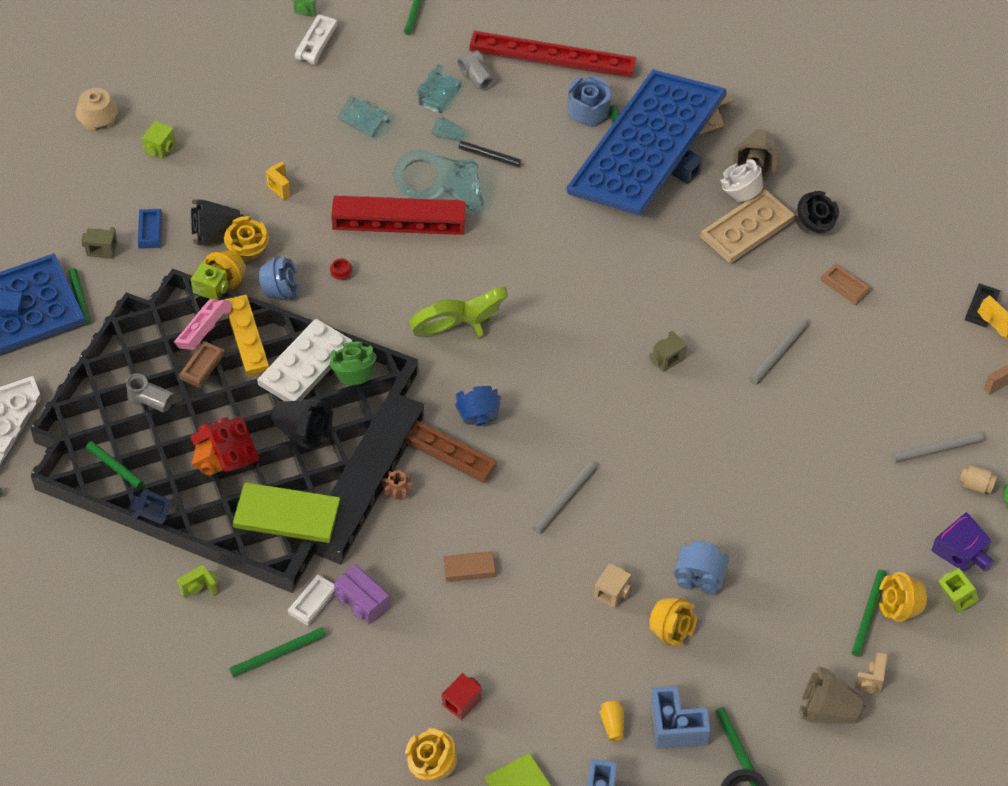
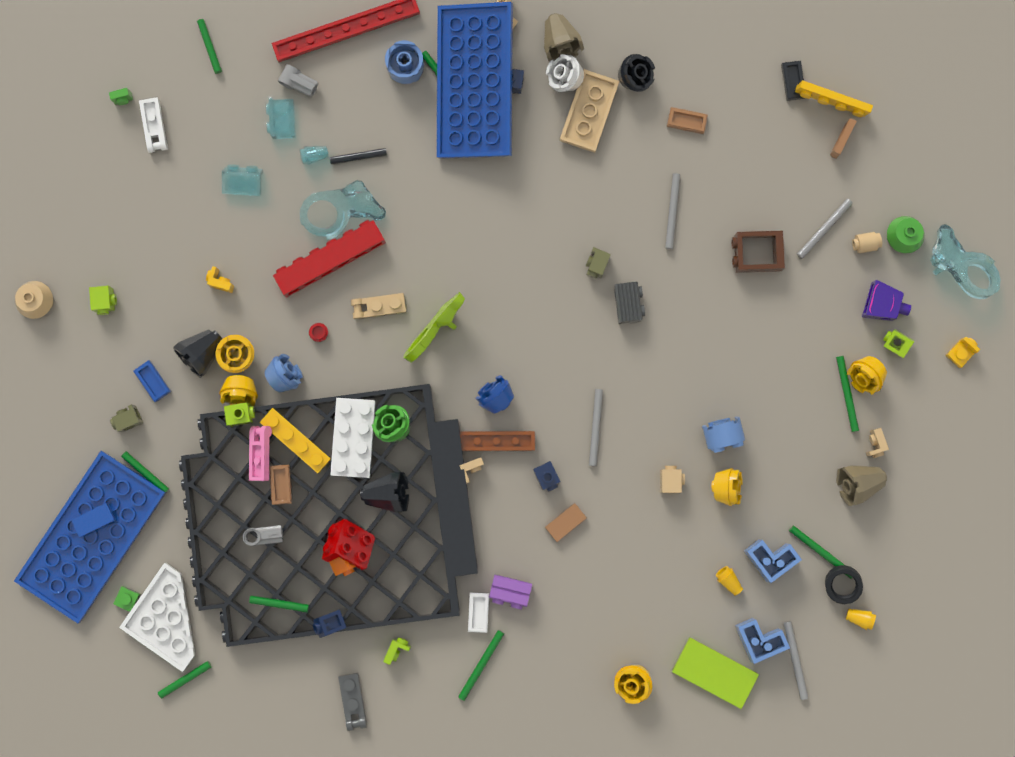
camera: 30 degrees left, 30 degrees up
(115, 608) = (352, 701): none -> dark grey plate
(286, 512) = (423, 567): lime tile -> none
(397, 484) = (474, 489): nougat gear -> none
(407, 458) = (473, 466): none -> tan bracket
(417, 279) = (379, 306): none -> tan plate
(462, 696) = (623, 624): red brick -> none
(479, 509) = (547, 476): none -> dark blue brick
(677, 401) = (628, 302): none -> dark grey brick
(843, 442) = (778, 252): none -> reddish brown window

